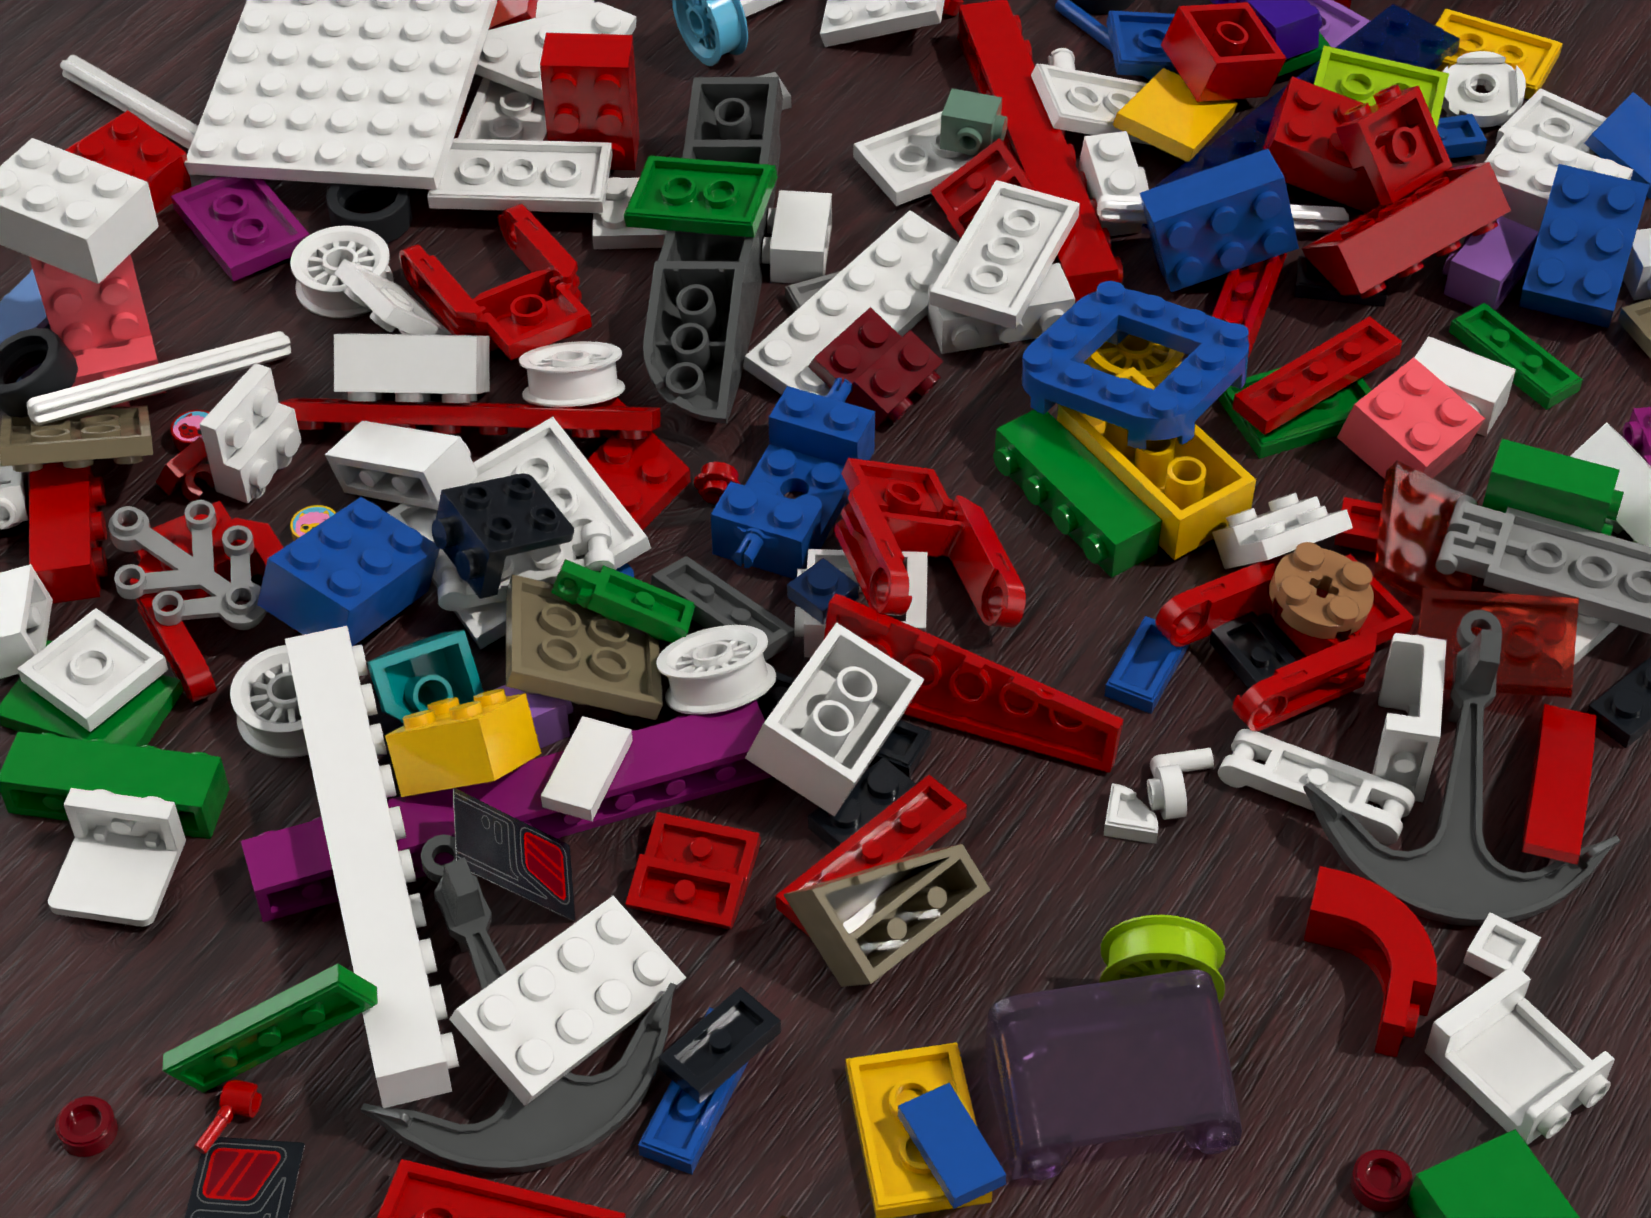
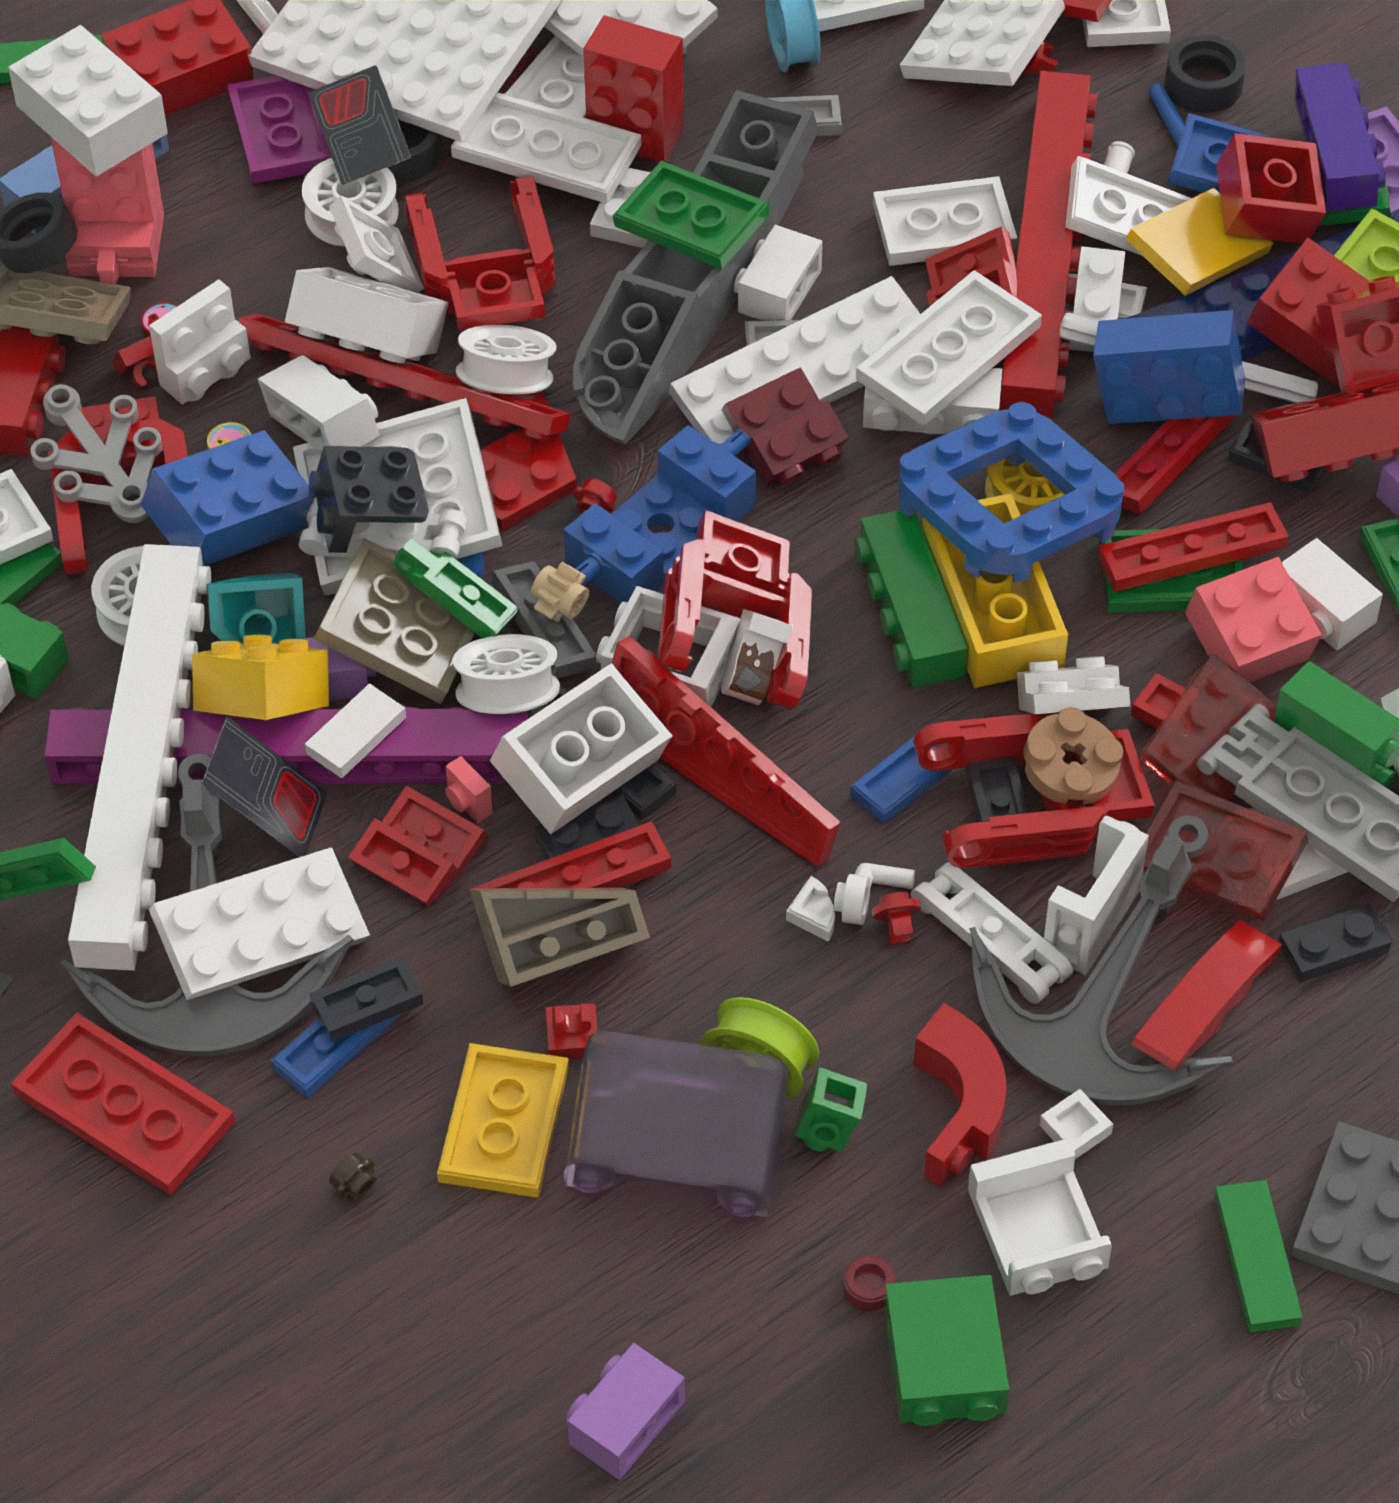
camera: 20 degrees right, 5 degrees up
(157, 378) = (146, 265): white axle -> none
(329, 196) = (359, 125): none -> black sticker
(724, 797) = (468, 790): none -> coral plate
(735, 574) = (559, 592): none -> tan gear
(817, 586) = (627, 621): dark blue plate -> none
(945, 1013) = (569, 1029): none -> red tile
(951, 1145) = (518, 1140): blue tile -> none
(955, 584) = (754, 656): none -> leg
(971, 122) = (984, 201): sand green brick -> none
(1219, 796) = (897, 910): none -> red plate
(1261, 1023) = (827, 1123): none -> green brick

